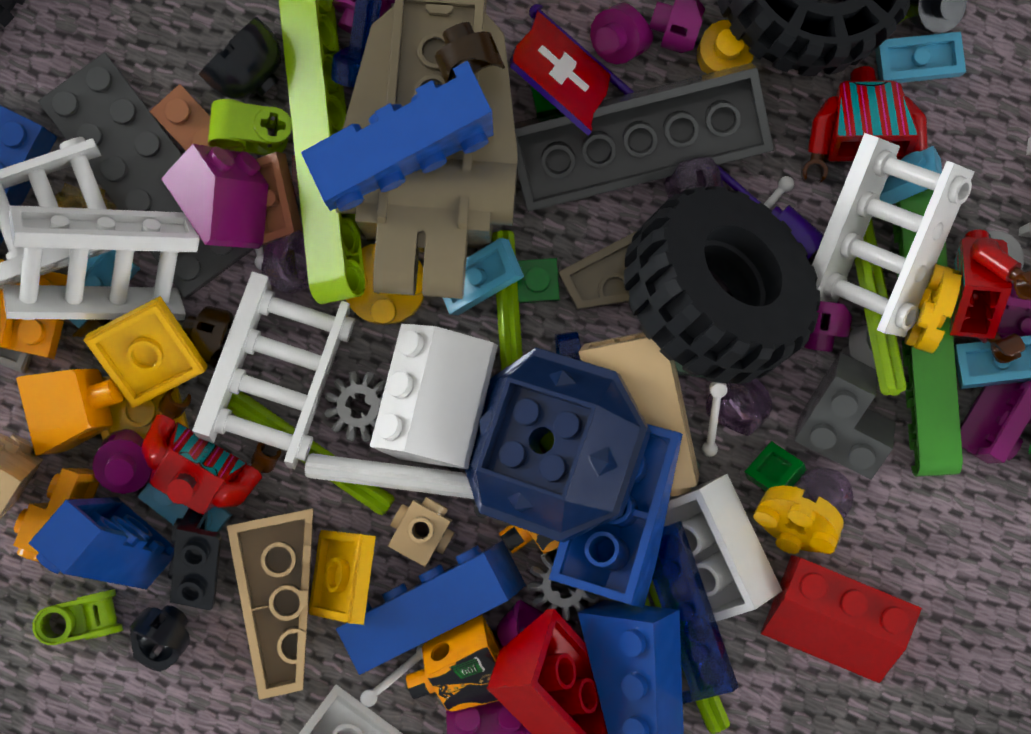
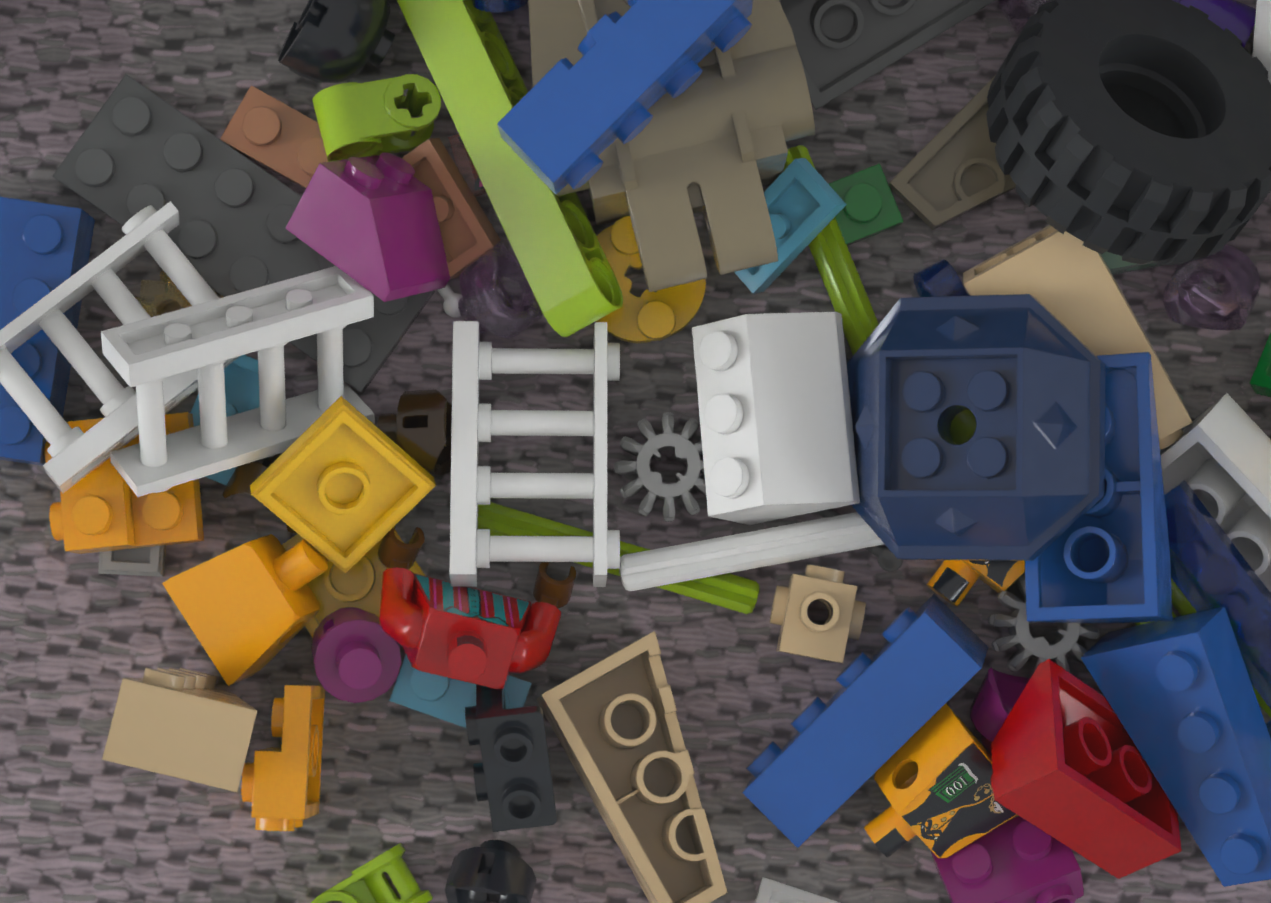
camera: 15 degrees left, 0 degrees up
(102, 543) = (382, 775): blue wedge -> none
(342, 576) = (727, 713): yellow tile -> none
(370, 696) = (817, 879): white hinge -> none
(718, 391) = (1177, 278): white hinge -> none

